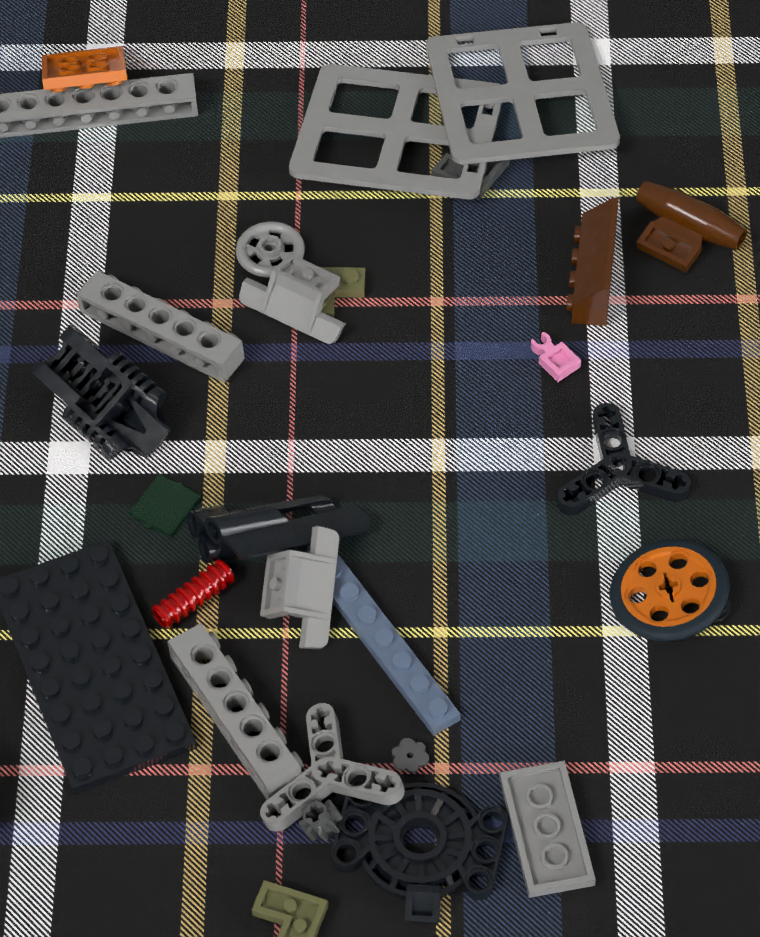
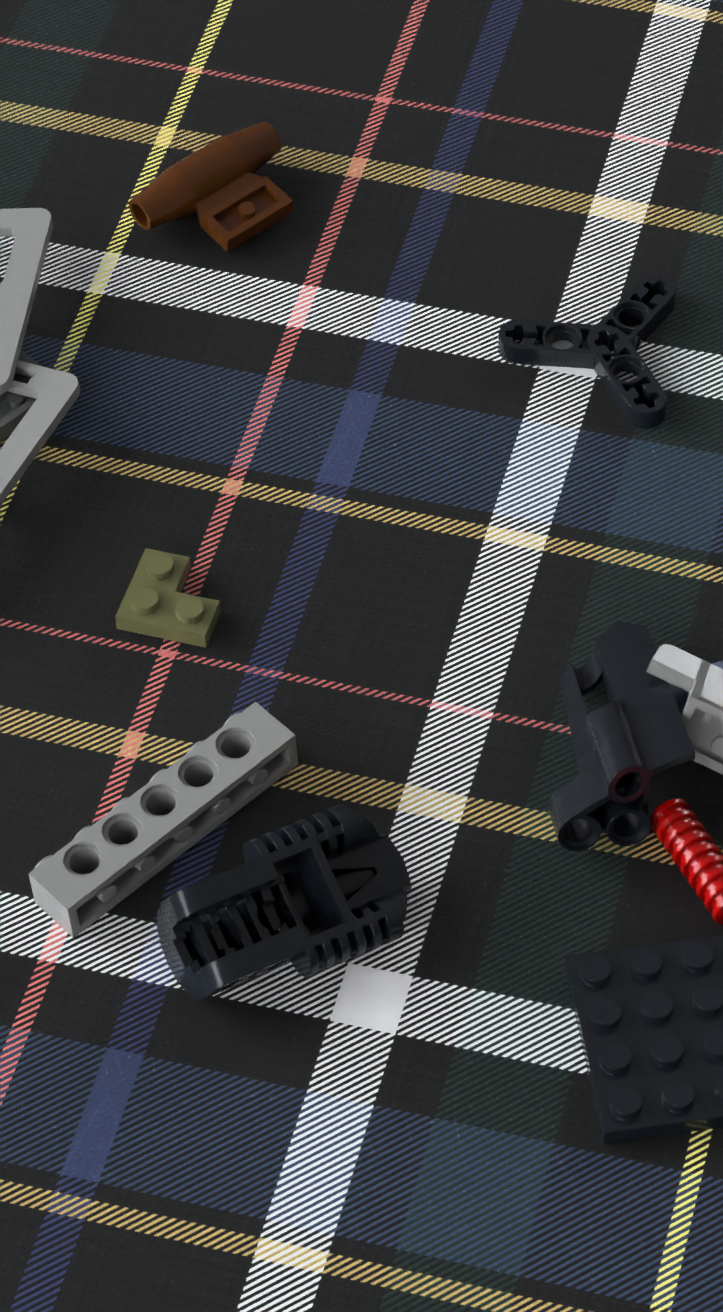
camera: 75 degrees left, 5 degrees down
(165, 505) = (510, 880): clear green piece -> none
(267, 242) = (58, 657): light grey plate -> none
(296, 298) = (180, 633): light grey plate -> none
(556, 360) = (398, 366): bright pink plate -> none
(594, 265) = (258, 279): reddish brown slope -> none

